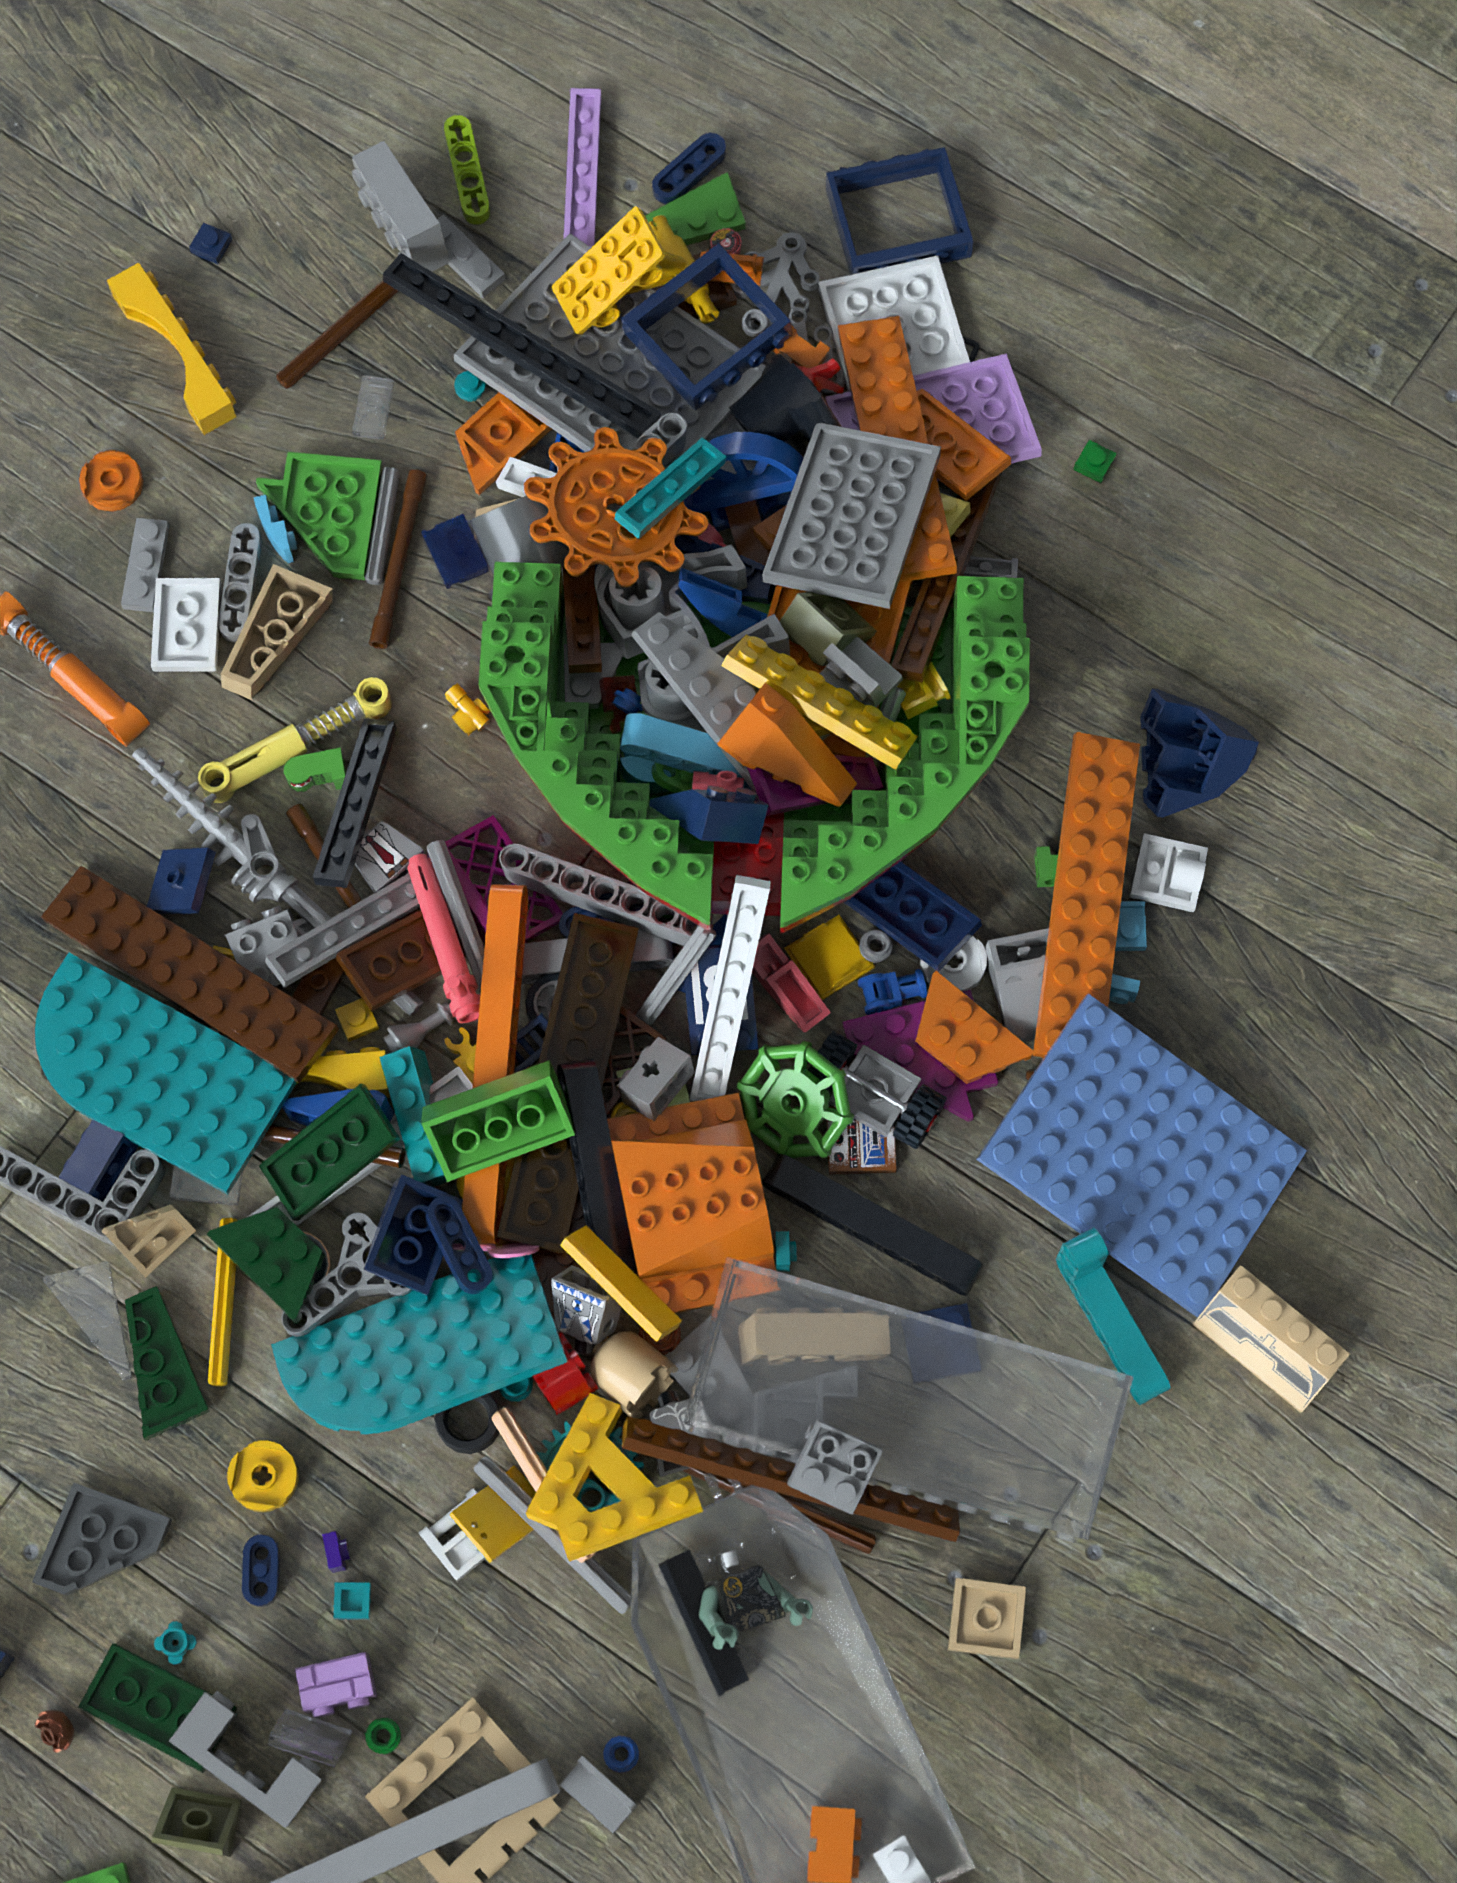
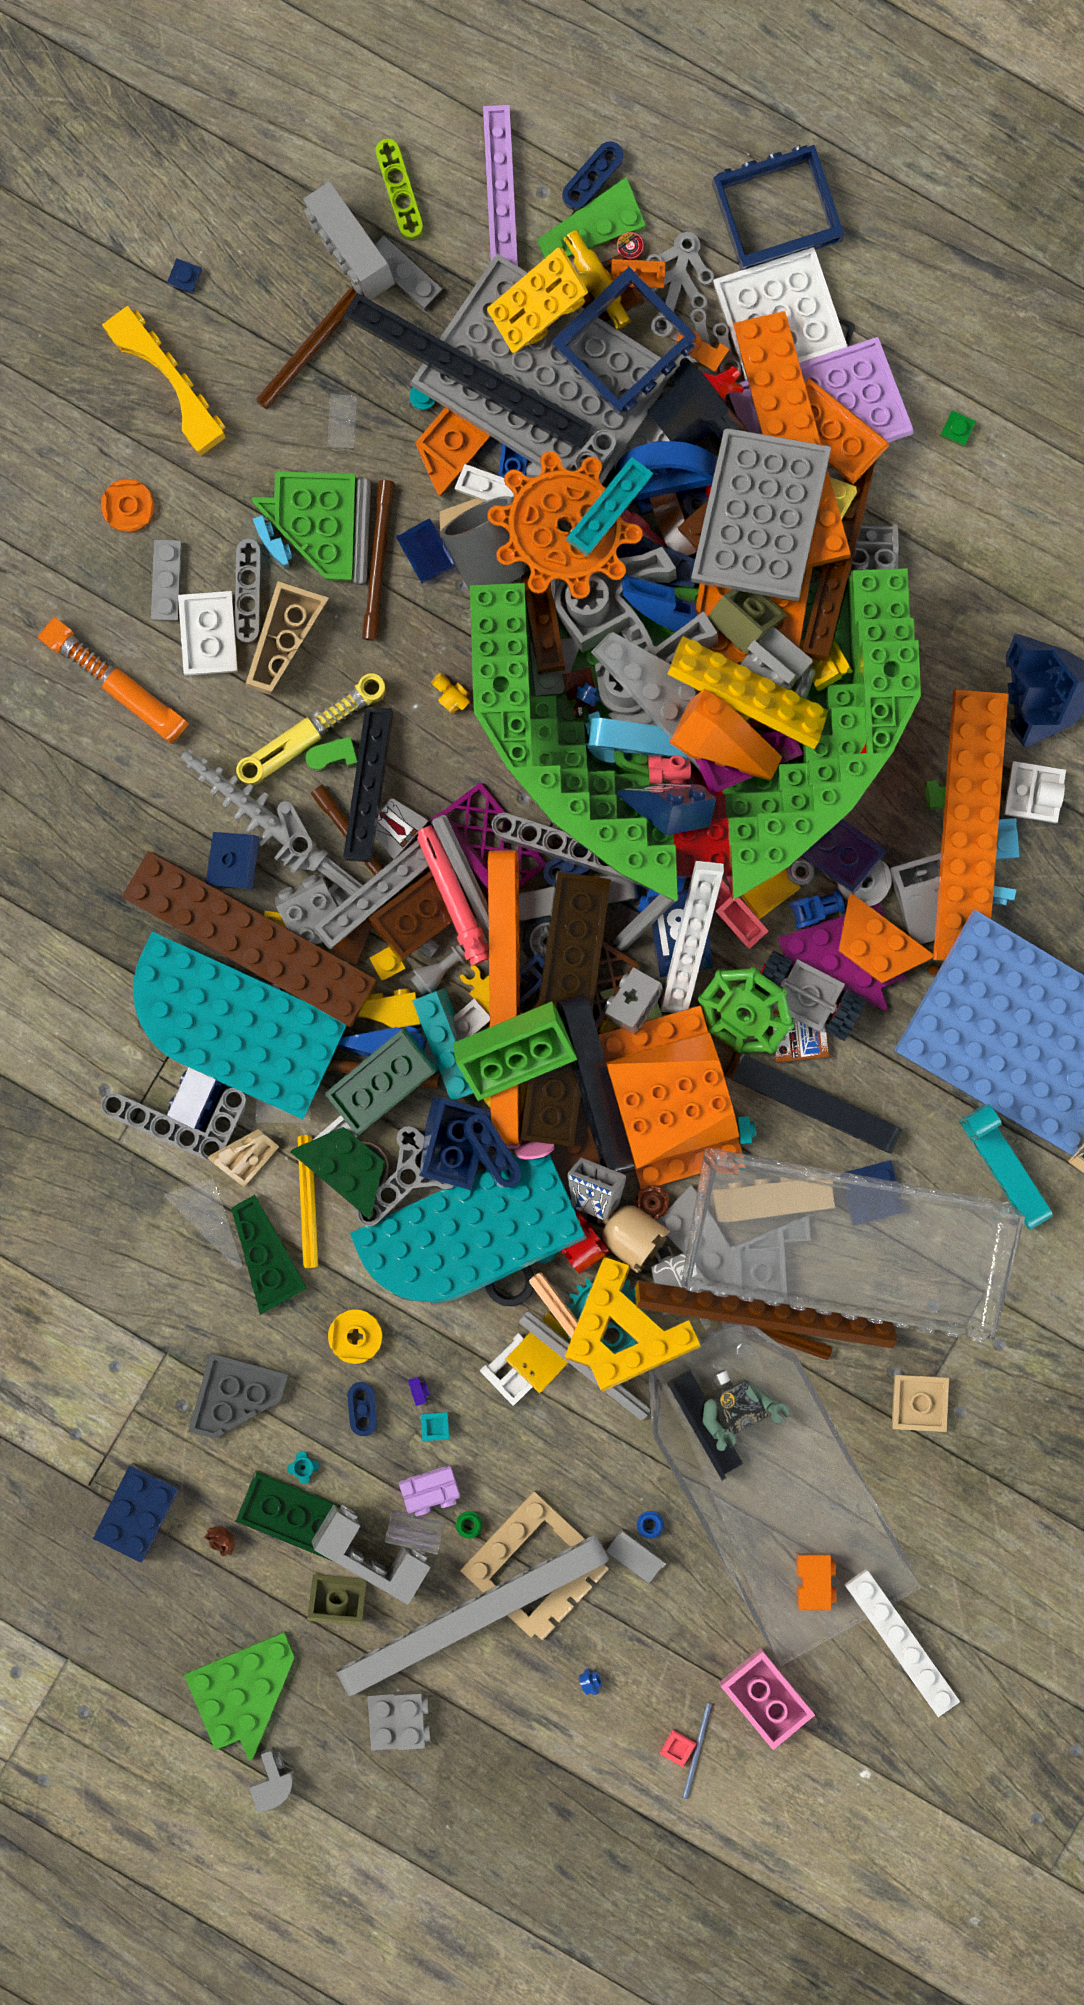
camera: 10 degrees left, 15 degrees up
(621, 1283) = (623, 1174): yellow tile -> none
(834, 1466) = (799, 1306): light grey plate -> none

